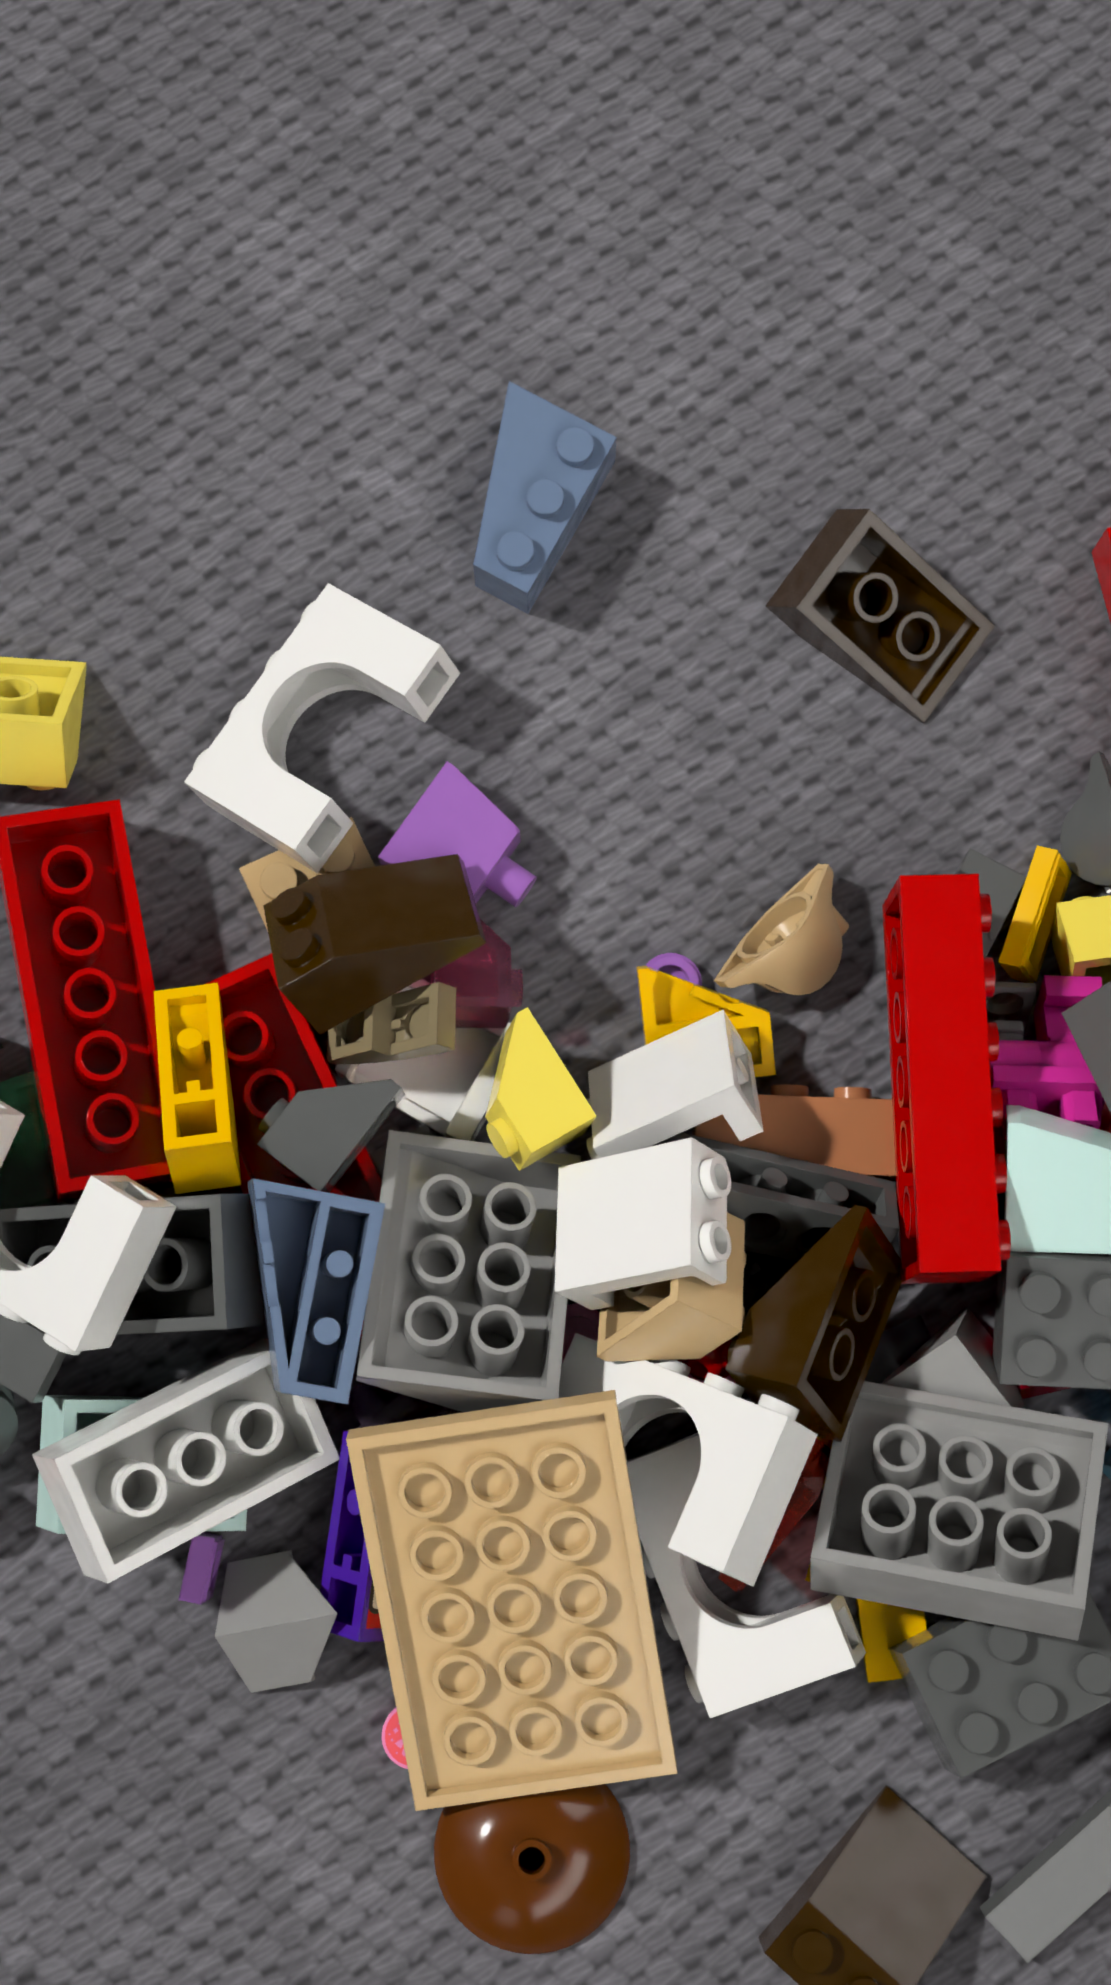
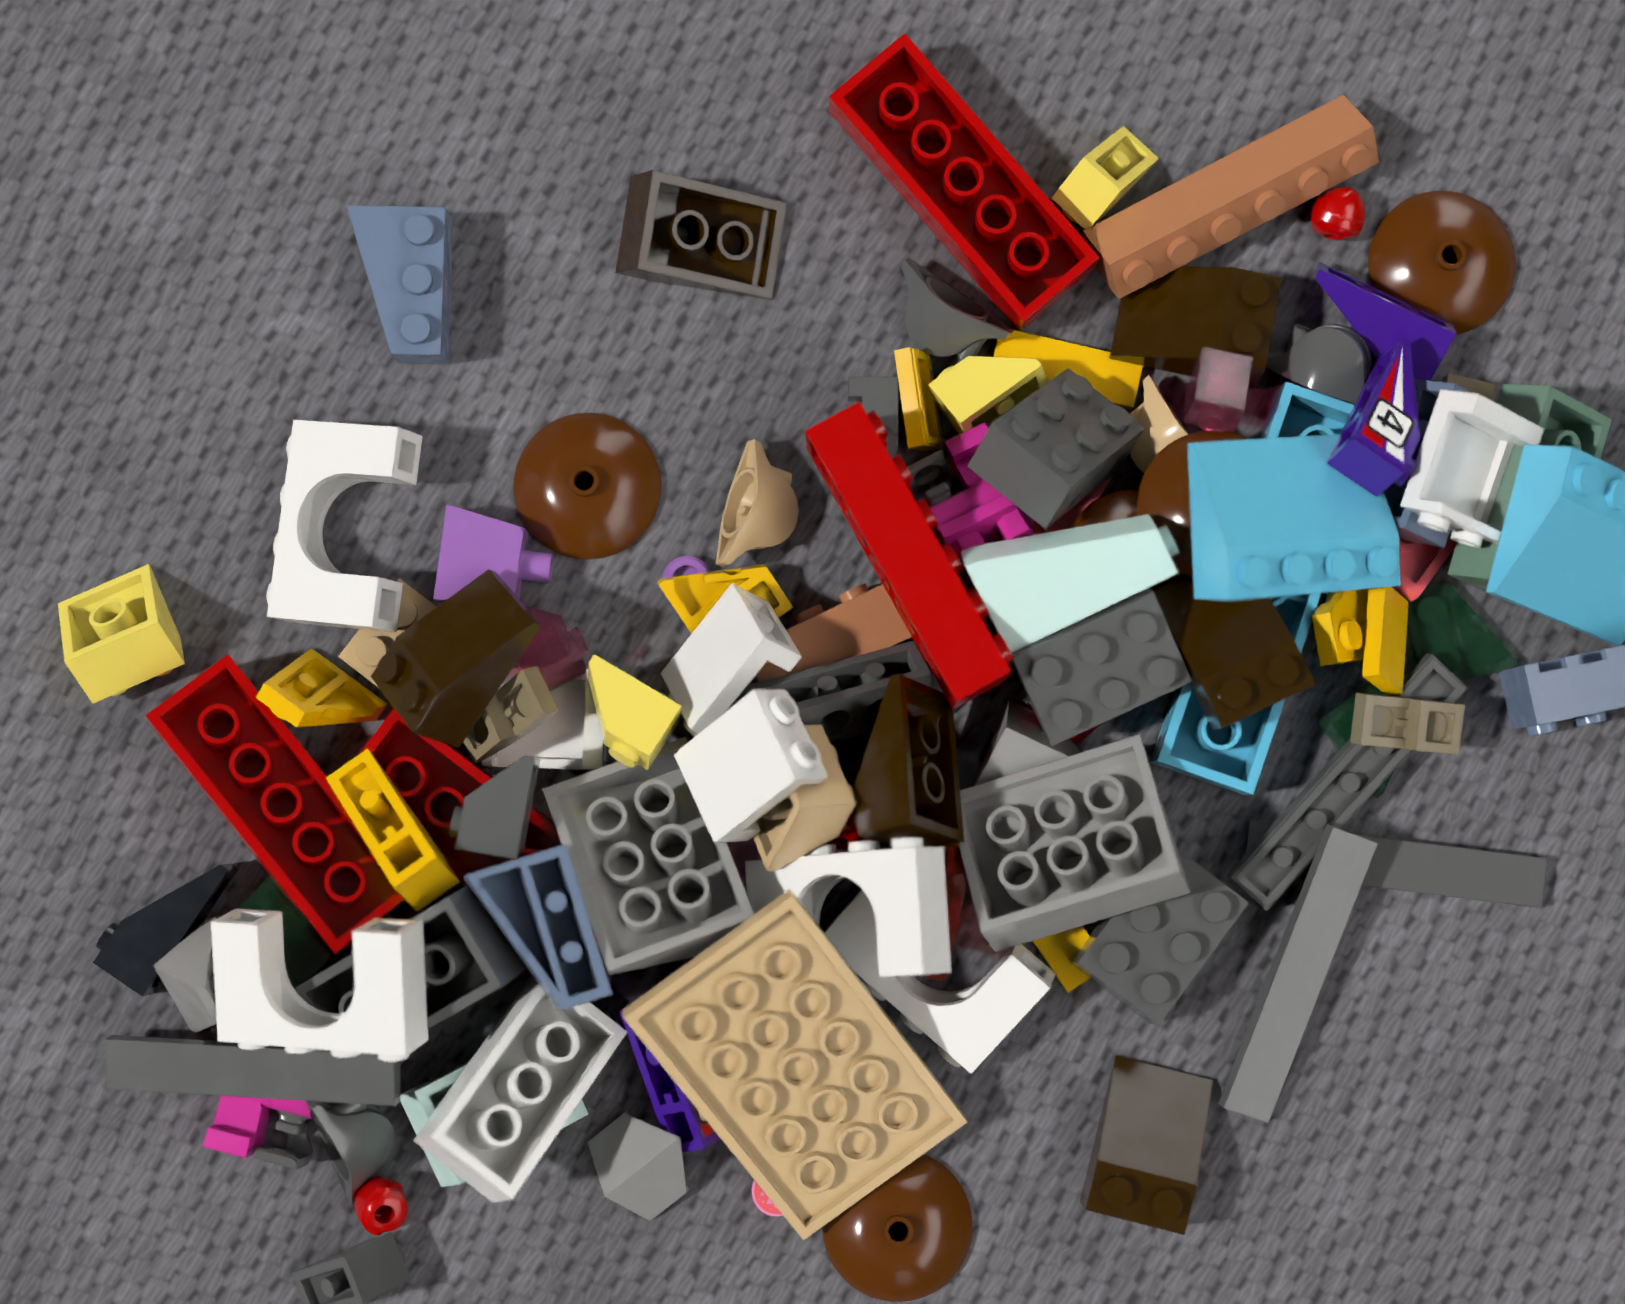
camera: 25 degrees left, 5 degrees up
(195, 896) = (318, 694): none -> yellow wing
(201, 1568) = (571, 1155): medium lavender tile -> none
(603, 863) = (593, 520): none -> reddish brown dish

